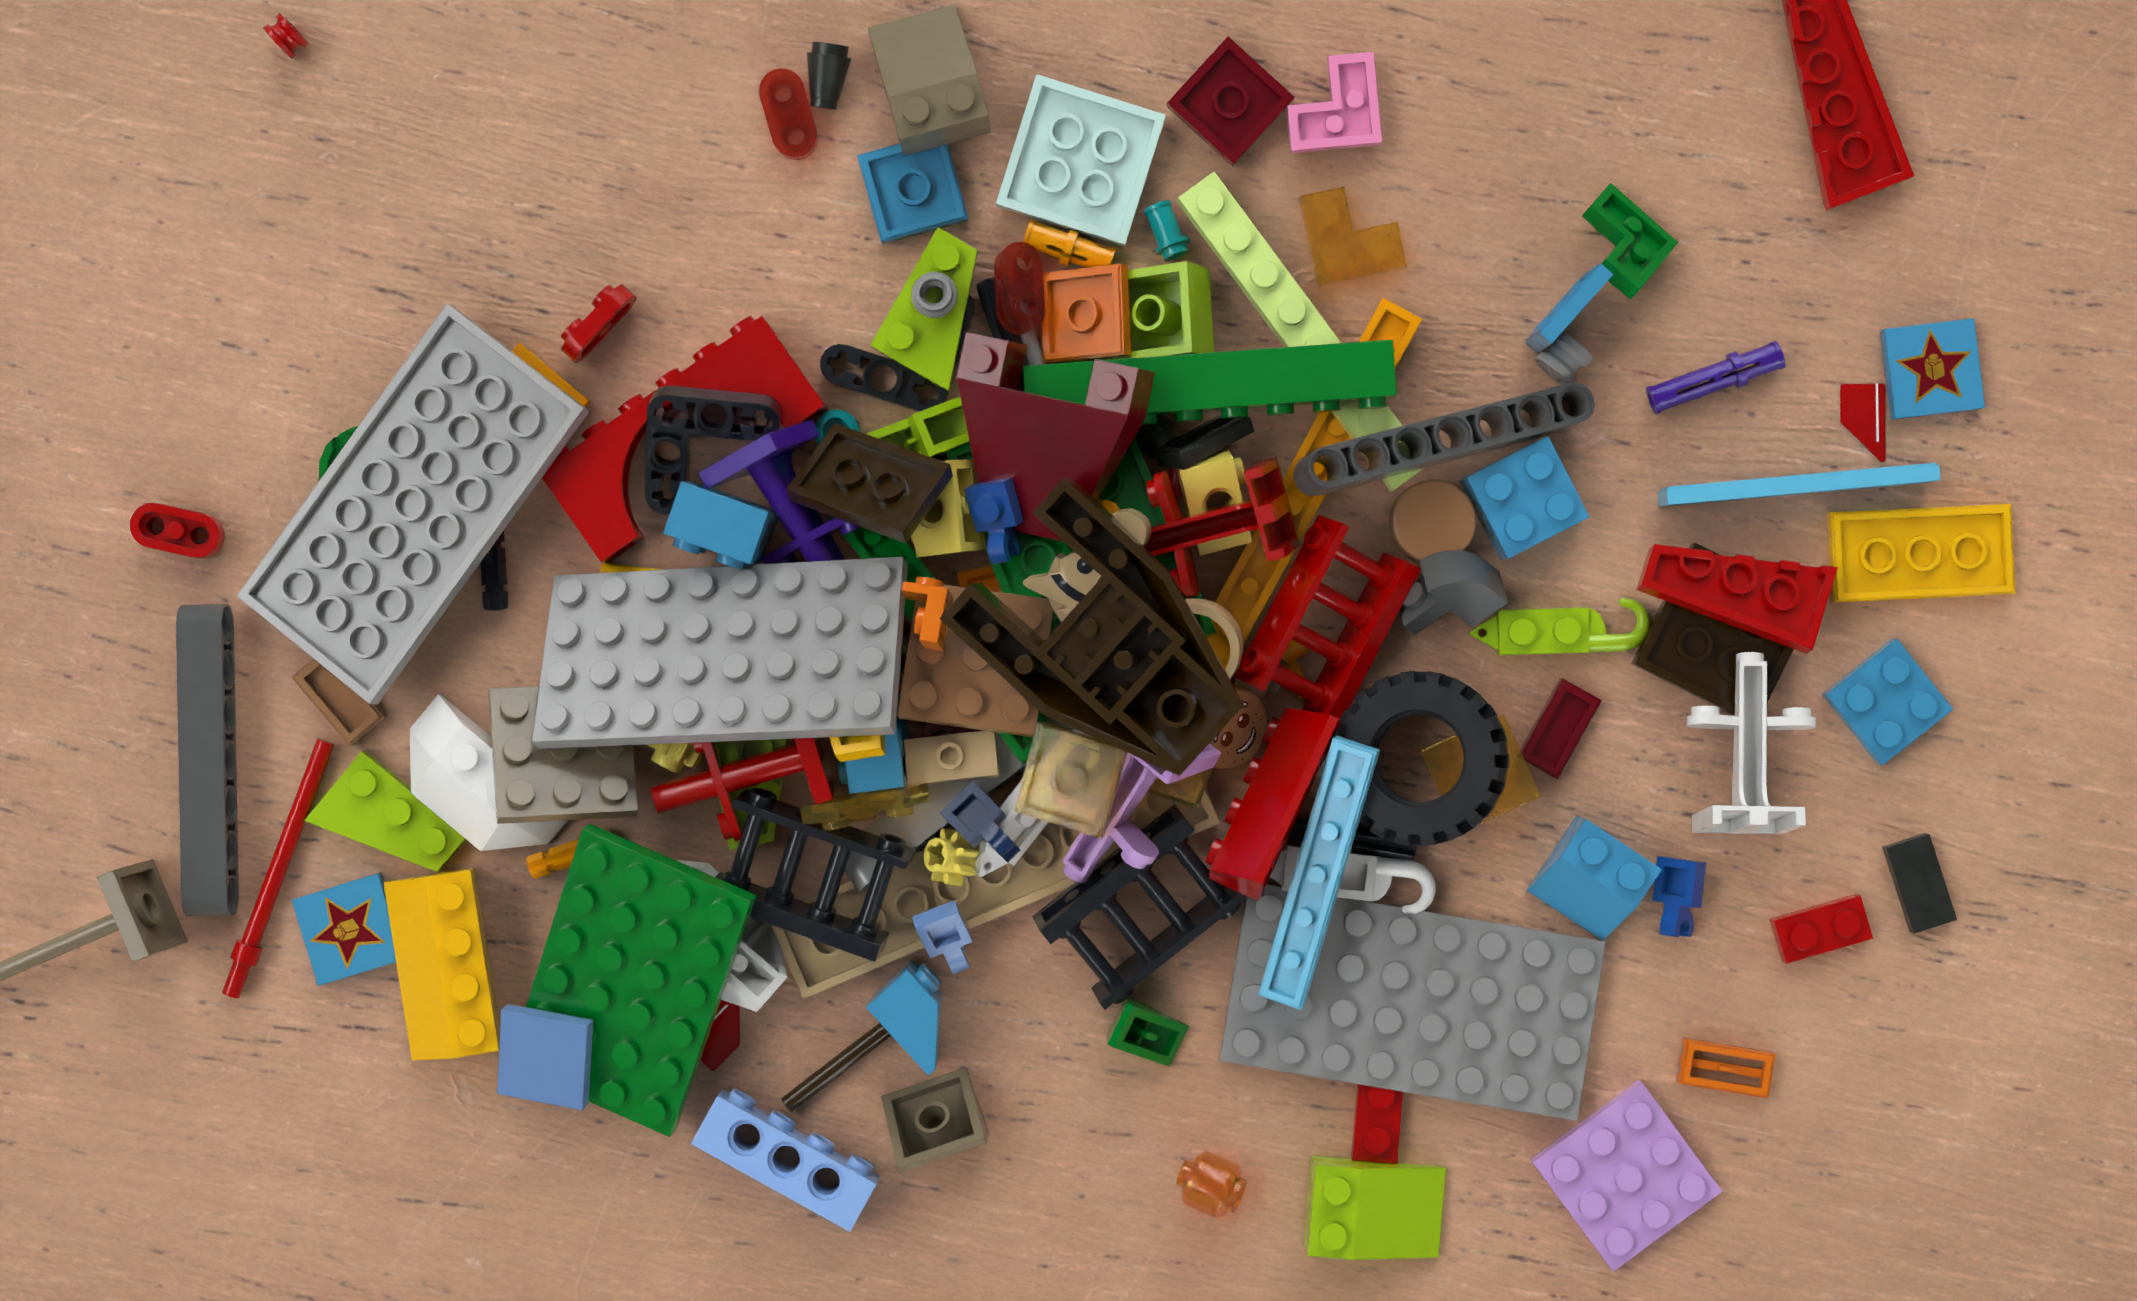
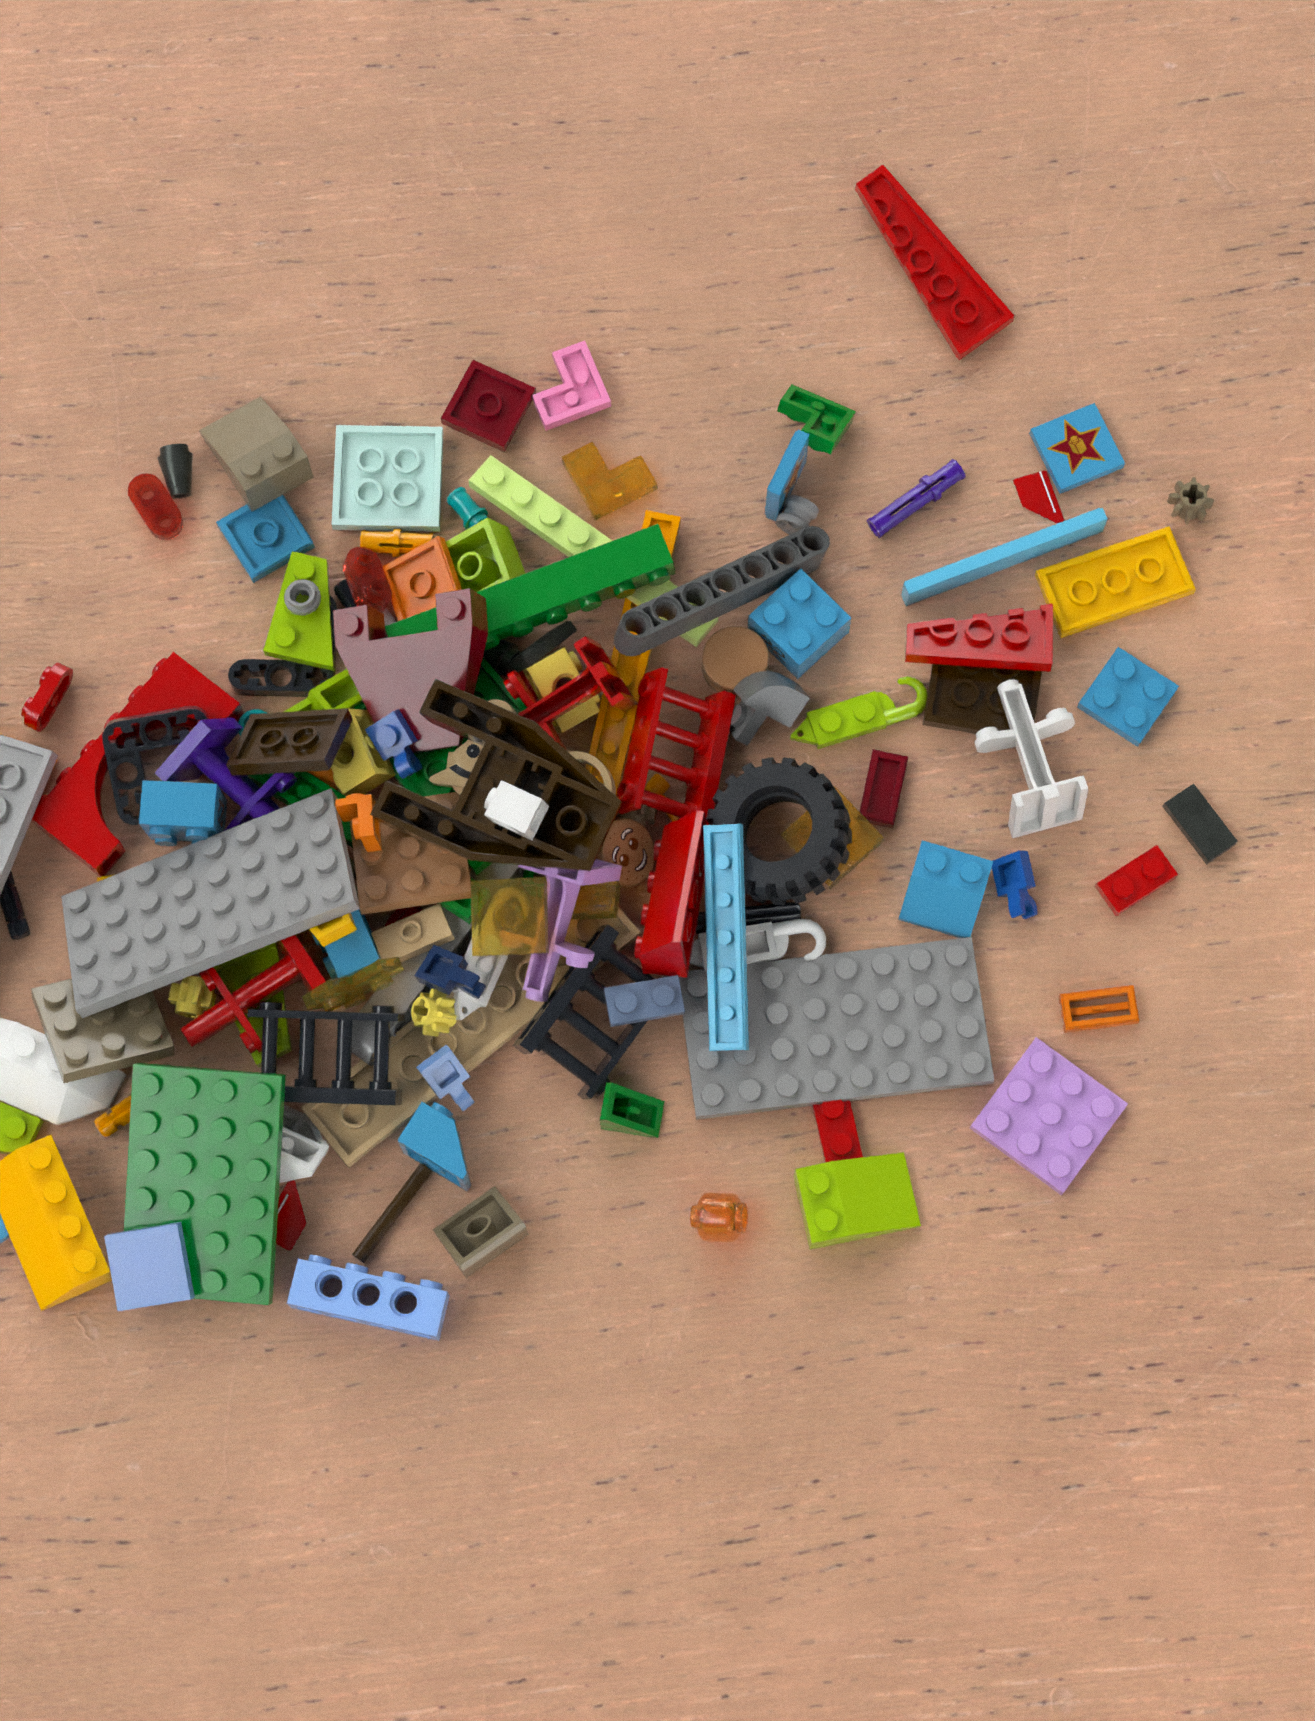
camera: 15 degrees left, 15 degrees down
(1112, 679) = (515, 809): none -> white brick
(1200, 916) = (644, 1001): none -> sand blue plate
(2059, 475) = (1199, 498): none -> dark tan gear

